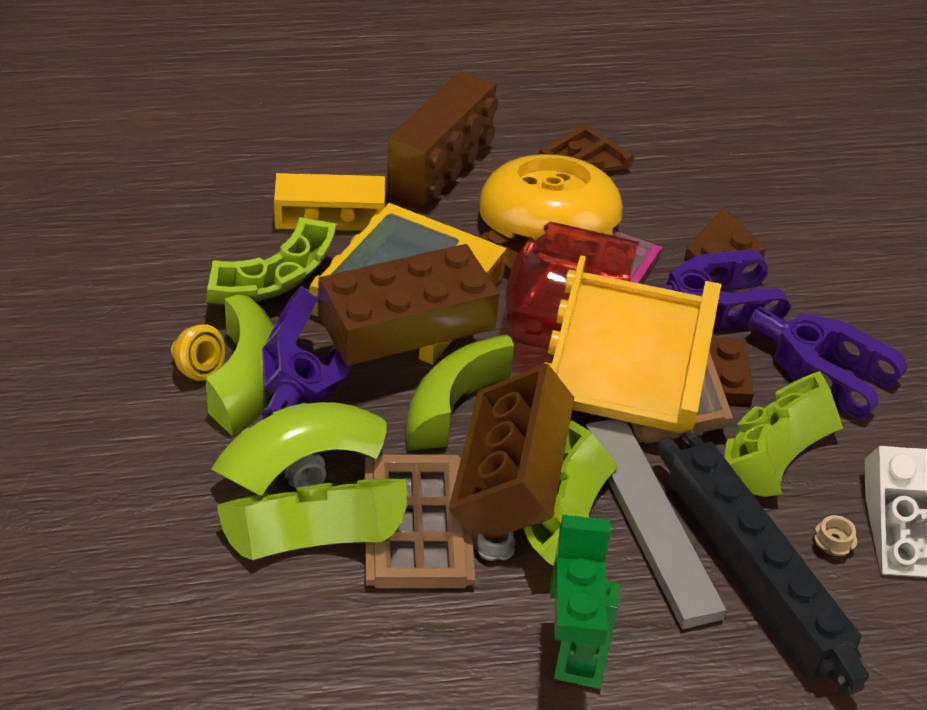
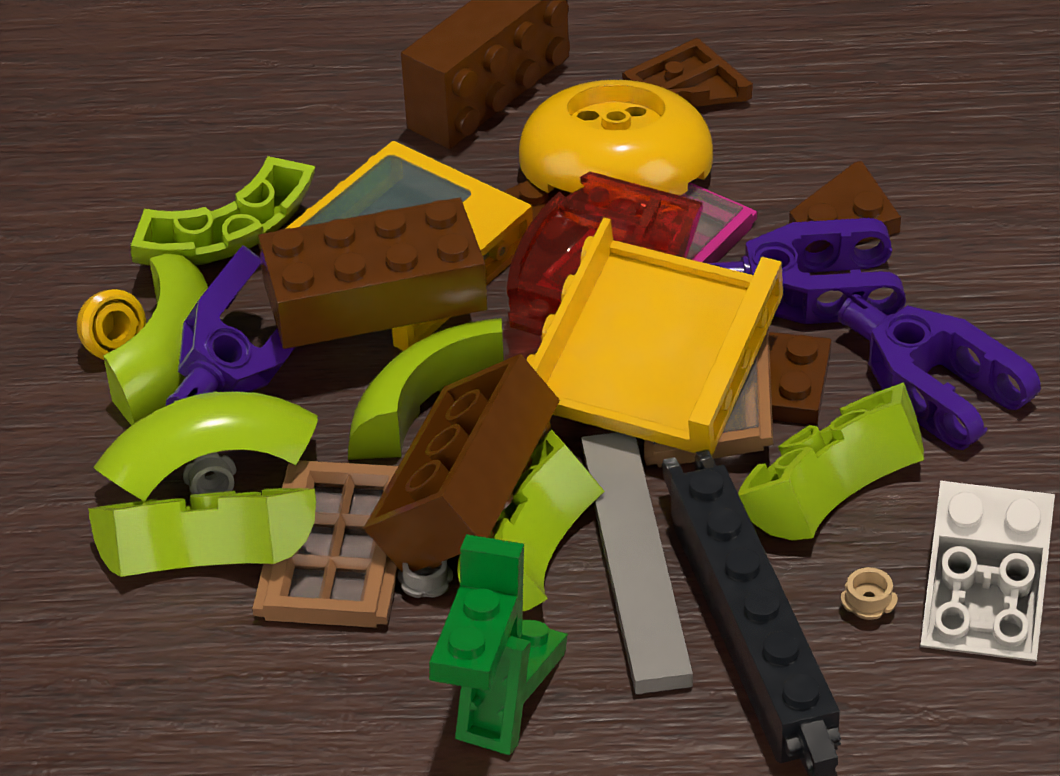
camera: 15 degrees right, 0 degrees up
(329, 198) = (319, 133): yellow brick -> none

